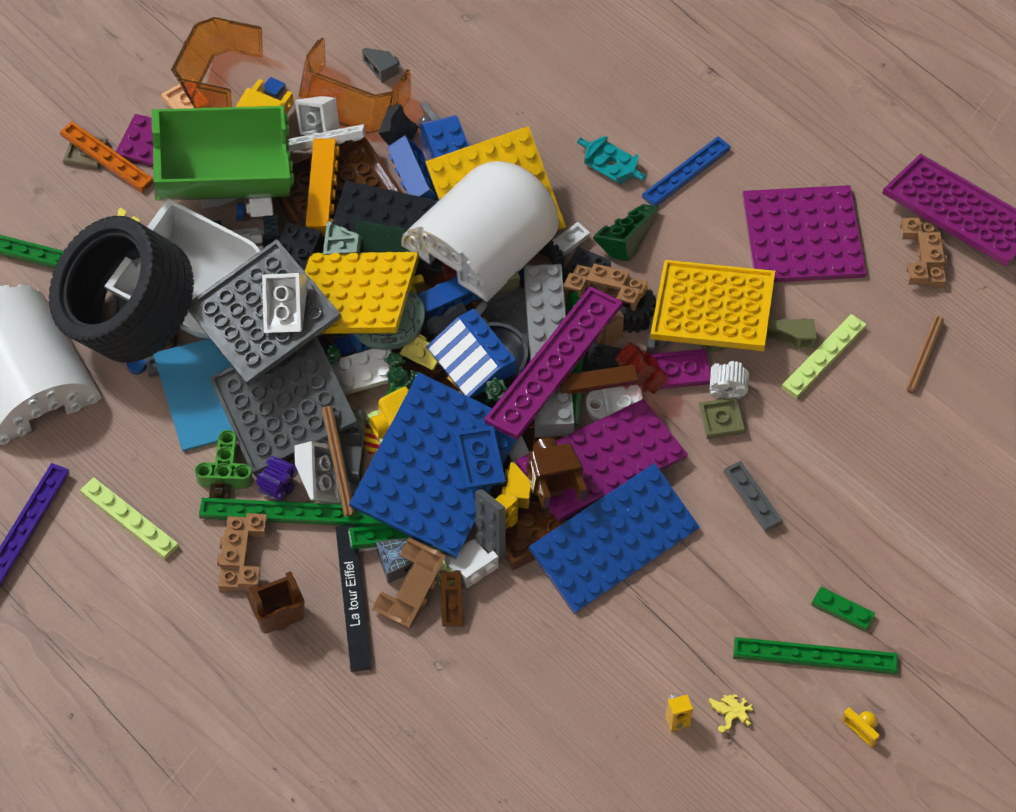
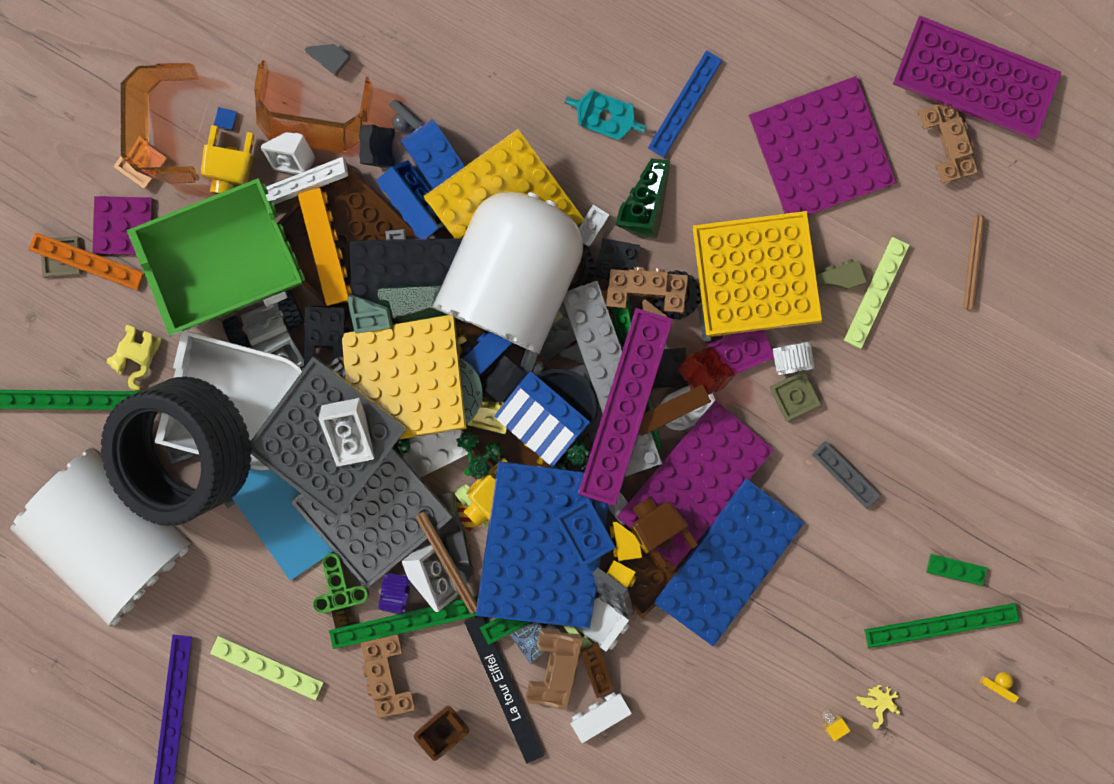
camera: 15 degrees left, 30 degrees up
(440, 644) = (600, 716): none -> white brick

